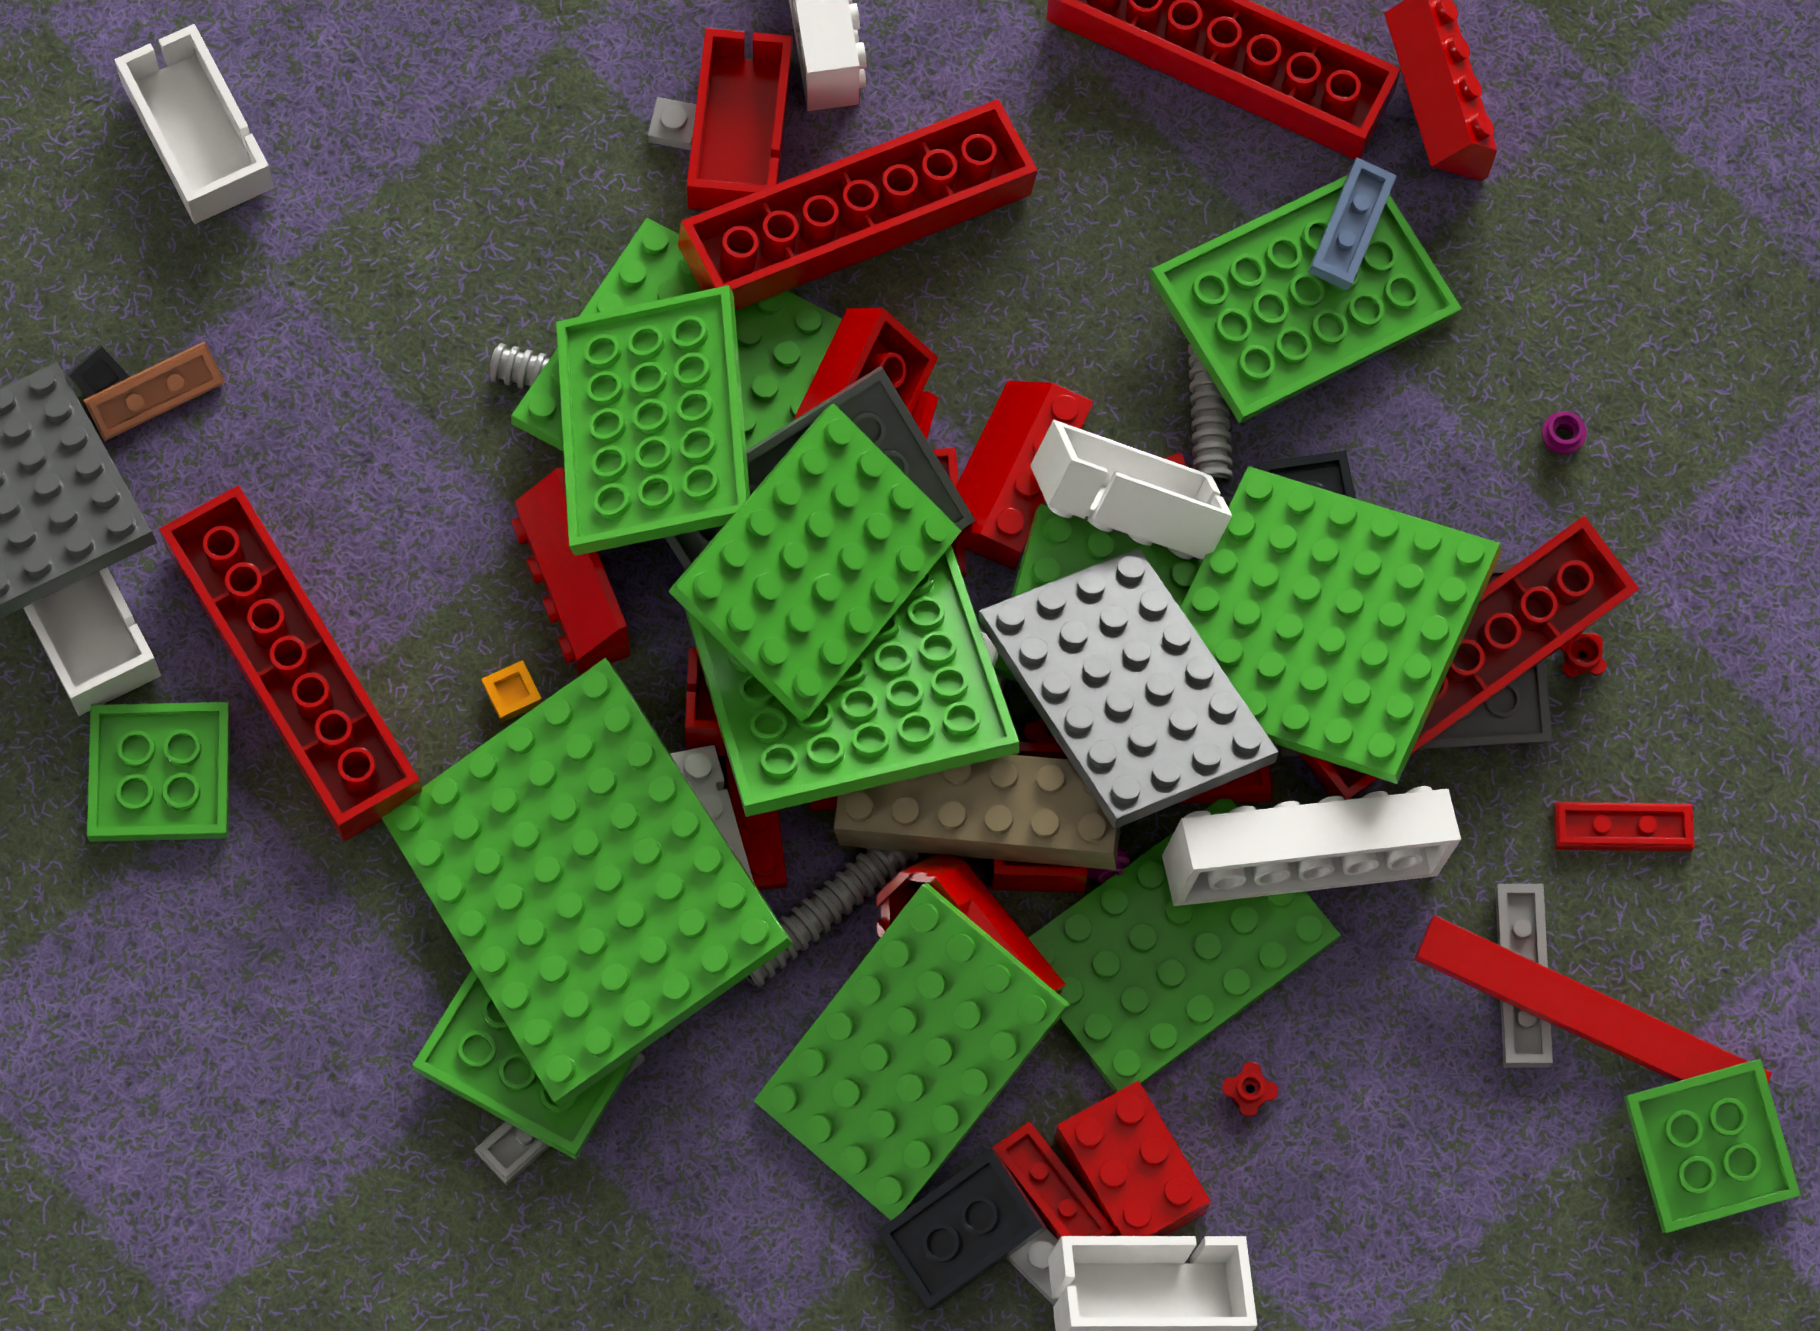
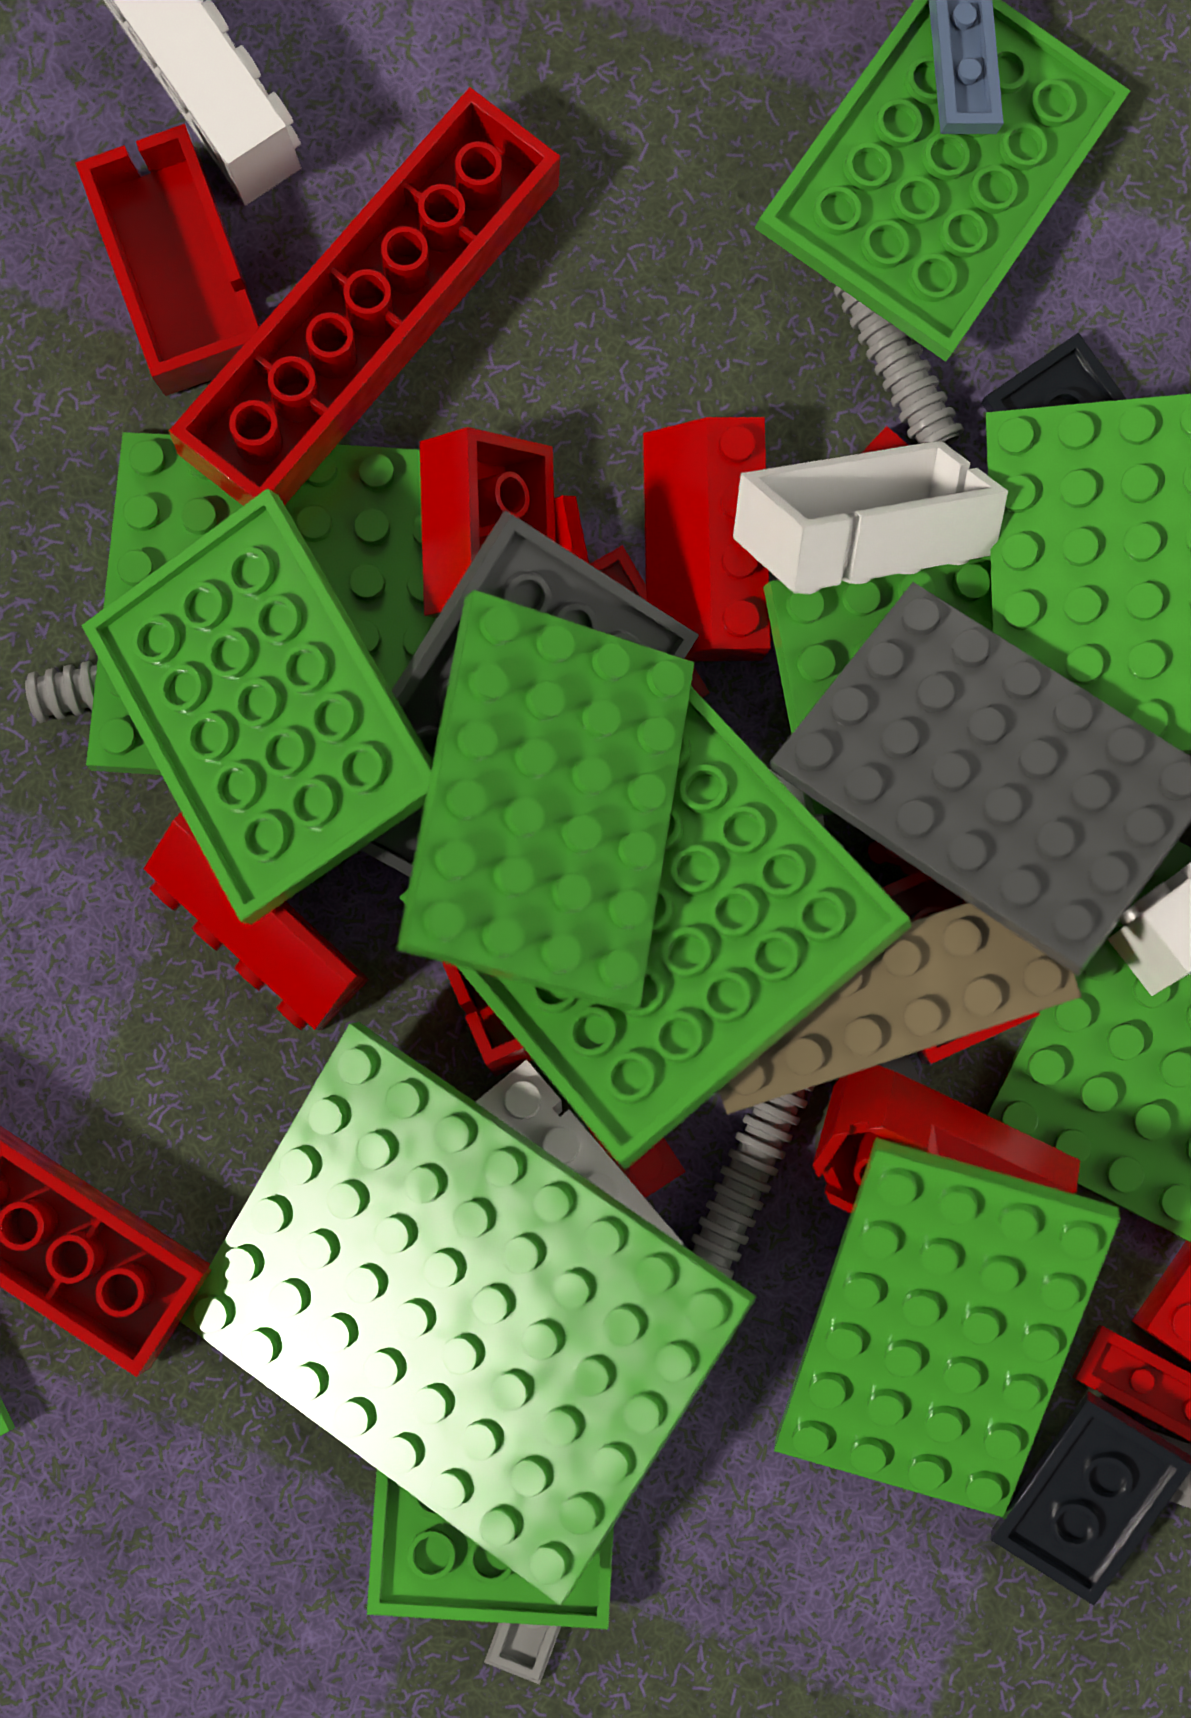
camera: 15 degrees left, 15 degrees up
(511, 691) = (255, 1094): light orange plate -> none
(672, 123) = (94, 298): light grey plate -> none

